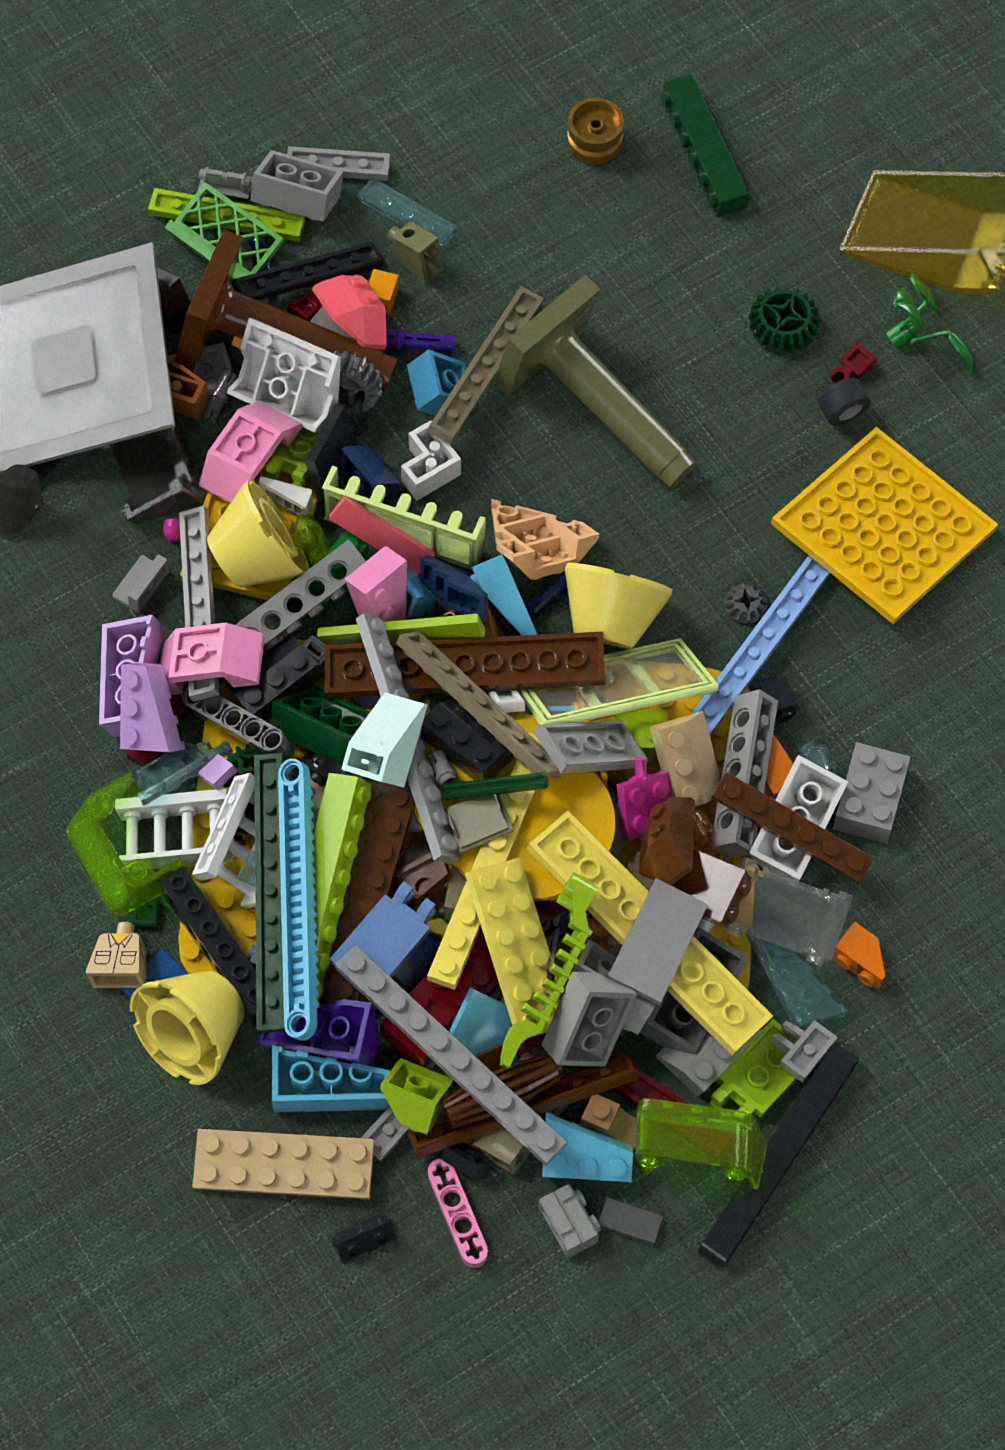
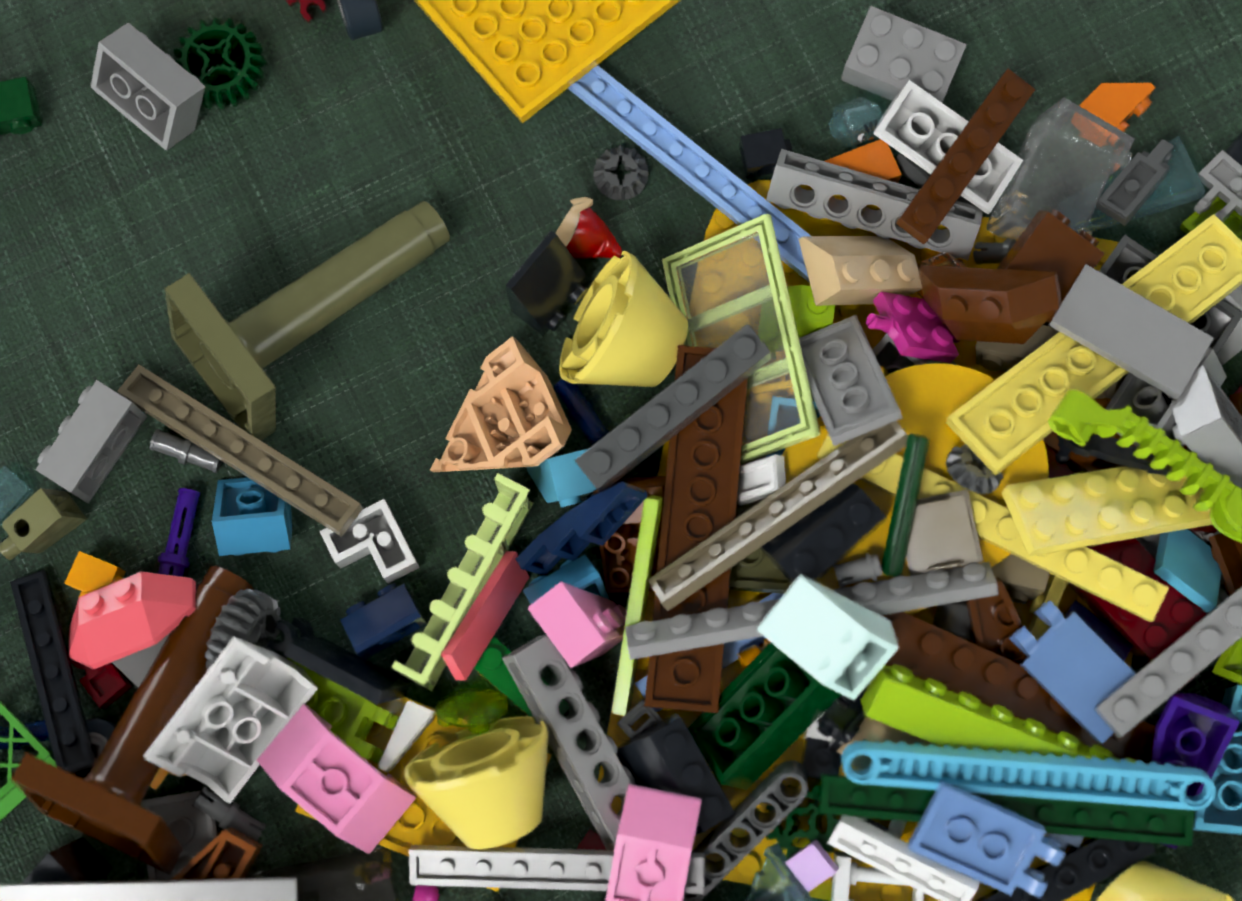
camera: 80 degrees left, 15 degrees up
(244, 873) = (984, 841): none -> medium blue tile
(478, 271) = (91, 441): none -> light grey brick
(485, 326) = (183, 450): none -> dark grey pin
(522, 827) = (968, 476): none -> dark grey gear
(550, 628) = (674, 408): none -> dark grey brick
(641, 545) = (546, 285): none -> black slope
(689, 579) = (587, 233): none -> red hat
(754, 270) = (147, 86): none -> light grey brick
(797, 970) = (1136, 183): none -> dark grey hinge

